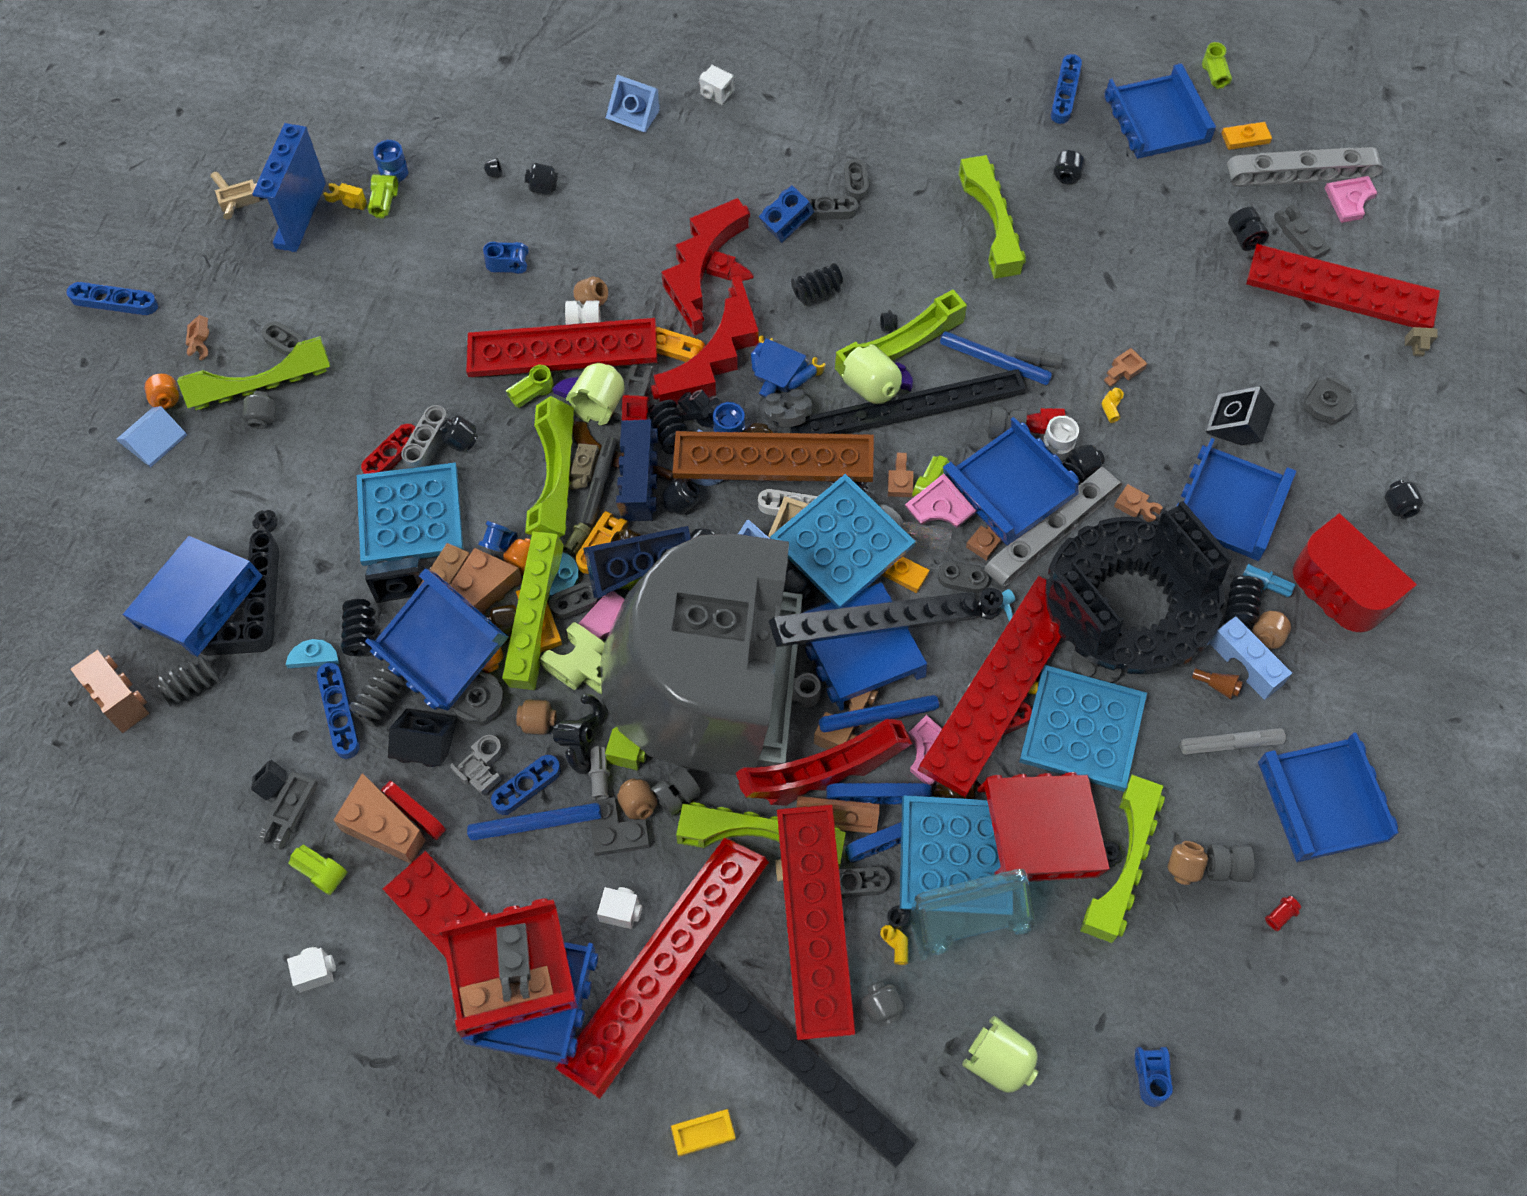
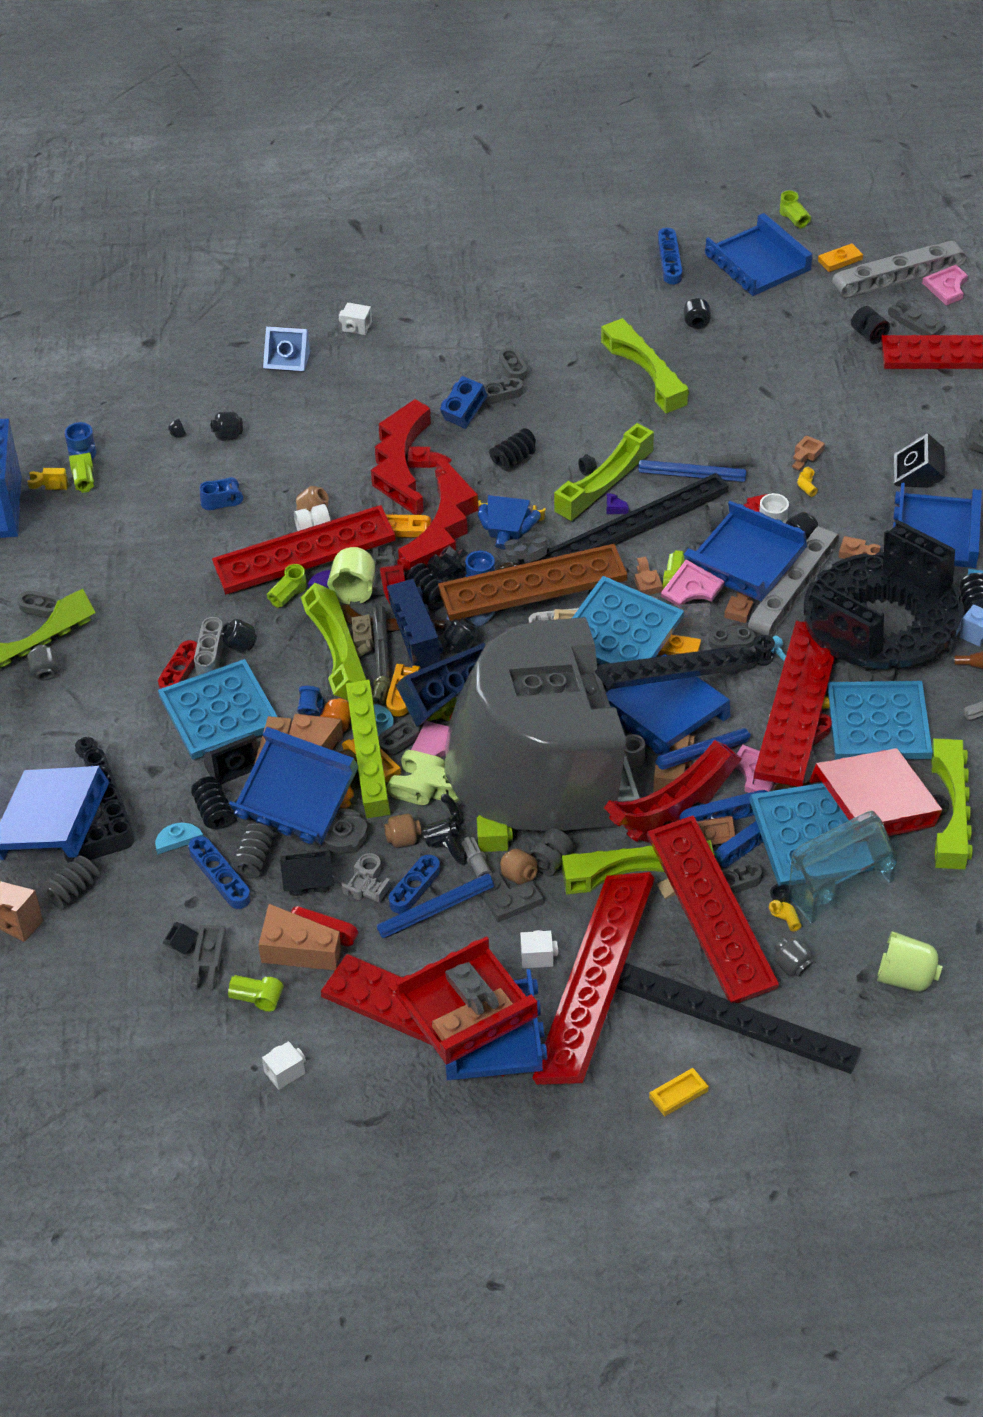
camera: 15 degrees left, 15 degrees down
(872, 374) = (592, 502): yellowish green cylinder -> none

